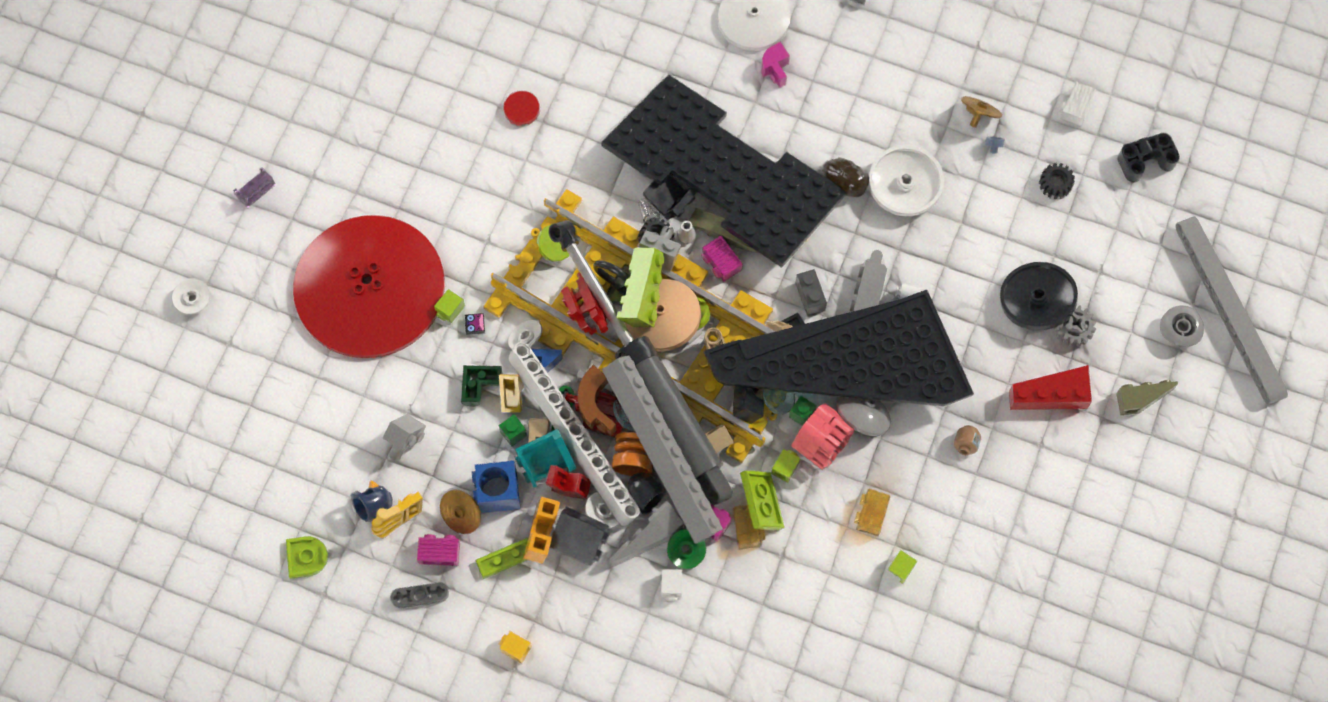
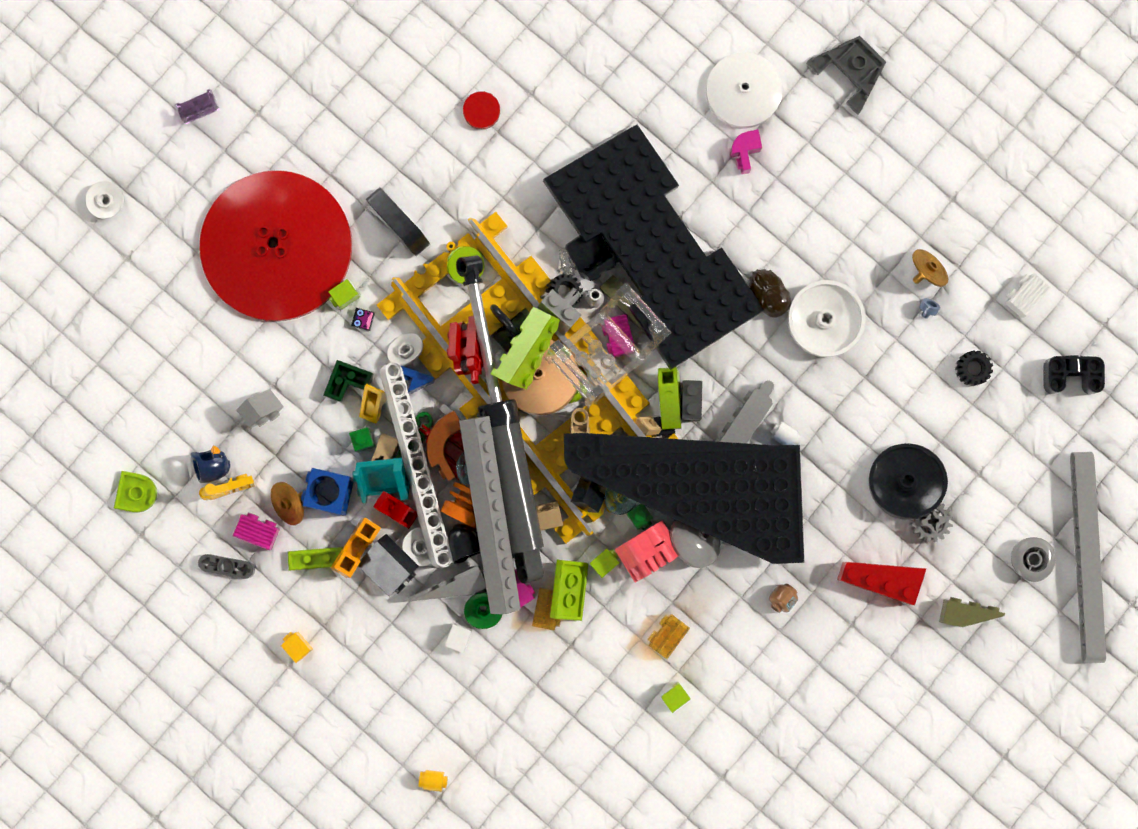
camera: 20 degrees right, 15 degrees up
(480, 224) = (398, 221): none -> black beam
(702, 278) = (558, 350): none -> clear windscreen
(790, 295) = (669, 398): none -> lime slope

